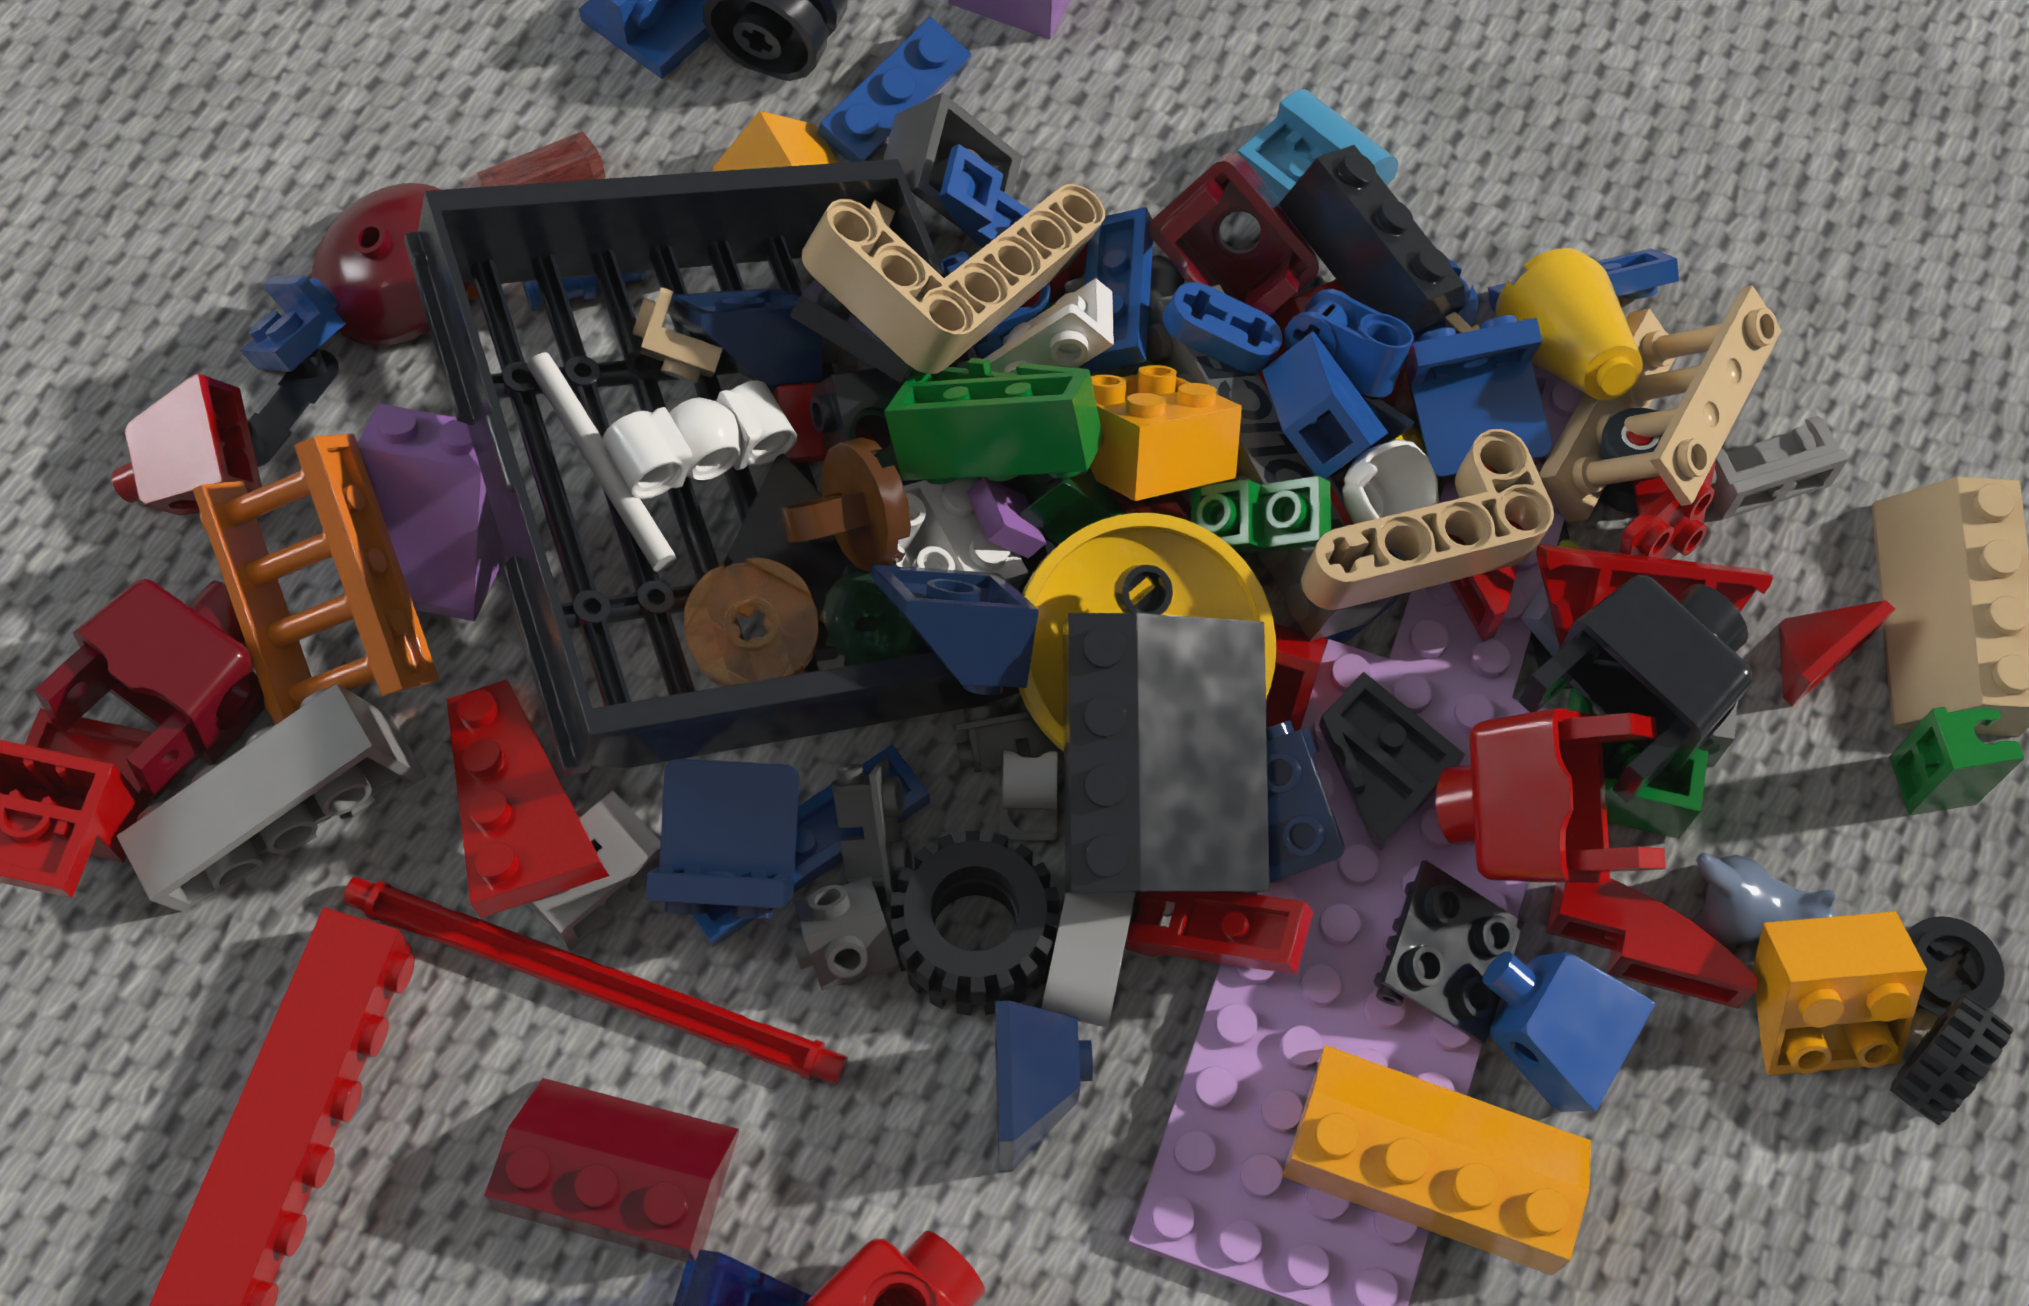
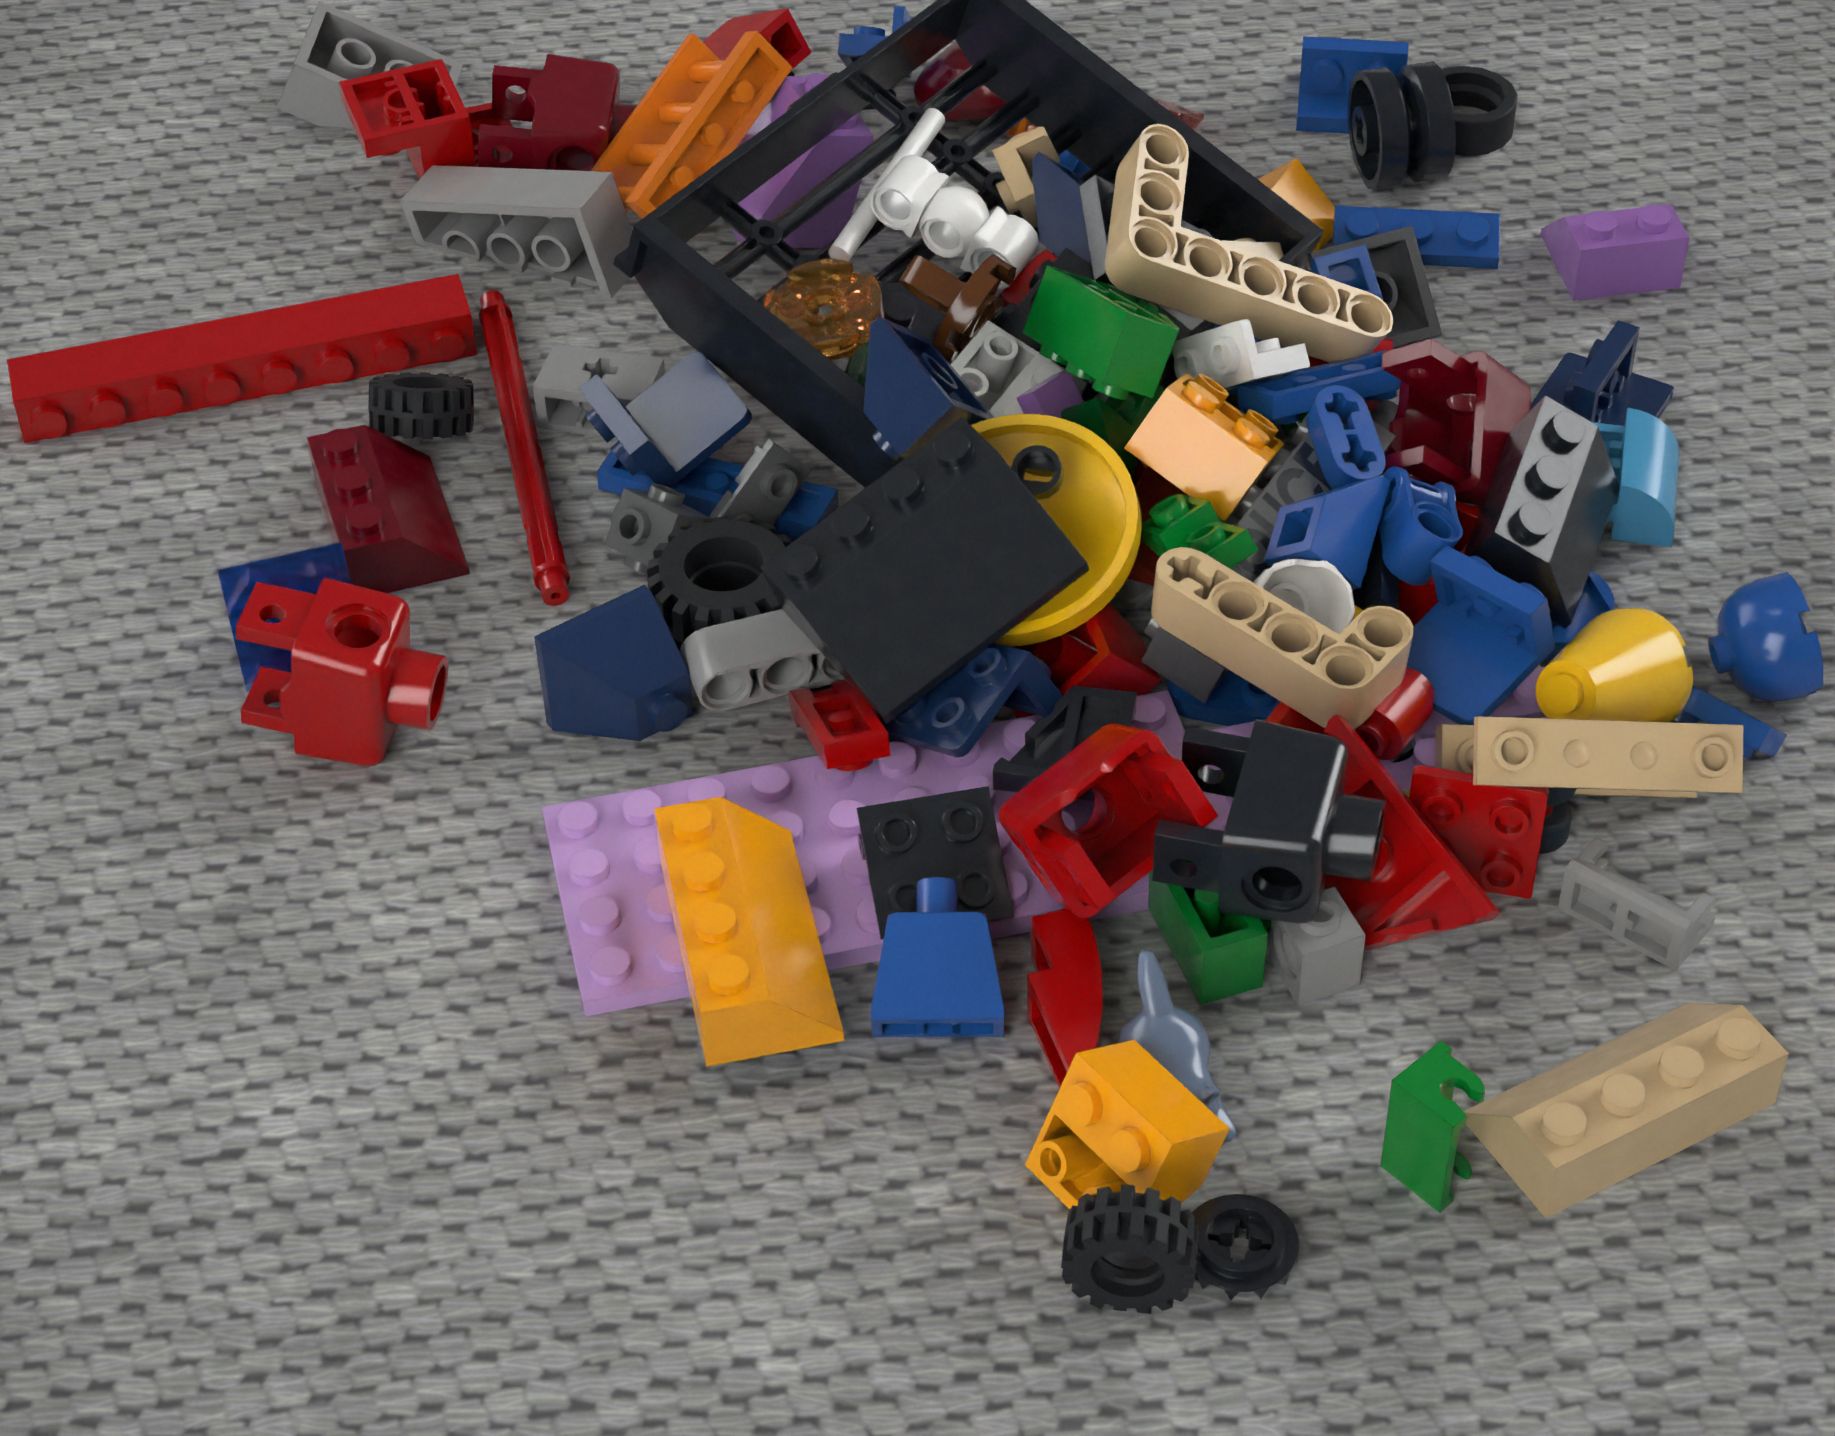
camera: 60 degrees right, 20 degrees down
(506, 1074) = (421, 405): none -> black tyre
(512, 806) = (589, 327): red wing -> none
(1197, 105) = (1604, 382): none -> dark blue bracket
(1579, 190) = (1767, 642): none -> blue cylinder
(1822, 641) = (1486, 1023): red slope -> none

